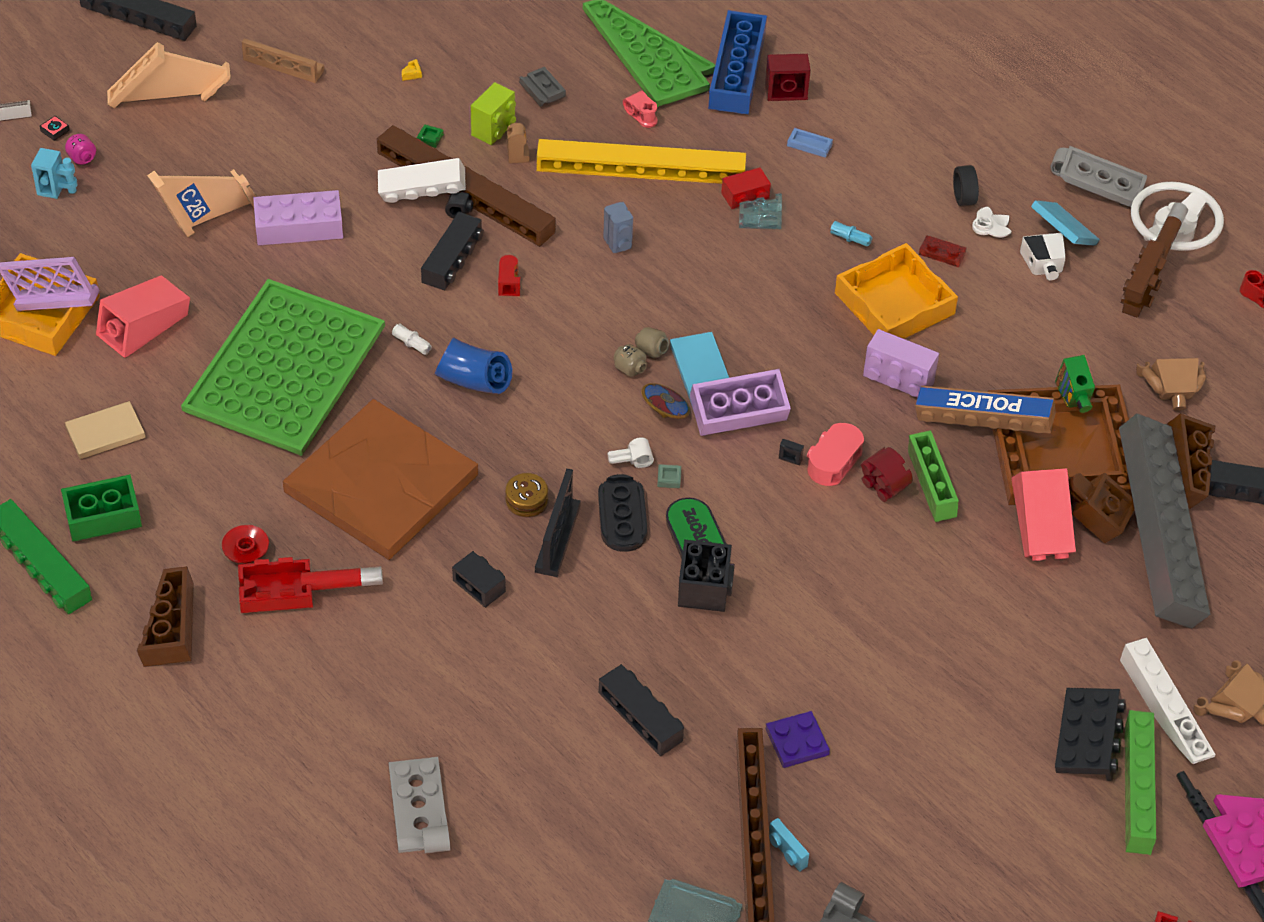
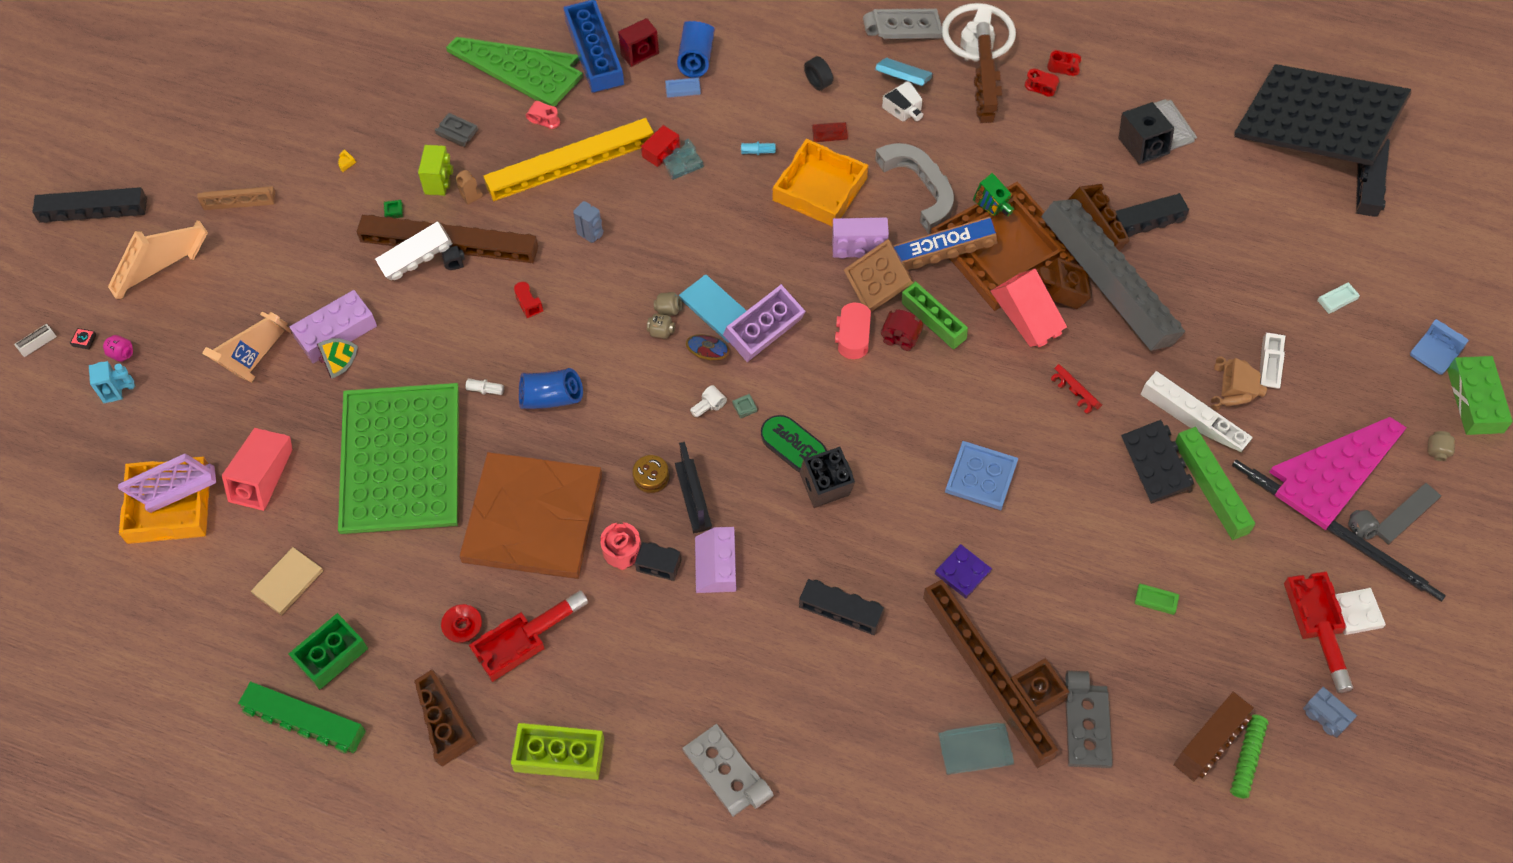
camera: 25 degrees left, 10 degrees up
(262, 702) = (558, 751): none -> lime brick
(284, 245) = (337, 355): none -> shield
(448, 543) = (620, 545): none -> coral brick
(452, 251) = (471, 298): black brick -> none
(541, 607) = (715, 560): none -> lavender slope
(622, 513) = (729, 453): black tile -> none
(791, 452) = (822, 344): black tile -> none
(792, 849) = (1010, 659): medium azure plate -> none
(798, 885) = (1040, 687): none -> reddish brown brick
(845, 107) = (695, 48): none -> blue brick
(880, 655) = (981, 475): none -> medium blue plate
(896, 410) = (878, 275): none -> medium nougat plate
(991, 224) = (850, 95): white plate -> none
(995, 867) = (1156, 599): none -> bright green tile
(1016, 312) = (909, 156): none -> light grey arch
(1047, 619) = (1076, 388): none -> red plate
(1174, 379) = (1050, 160): medium nougat torso -> none
(1220, 300) = (1043, 83): none -> red piece

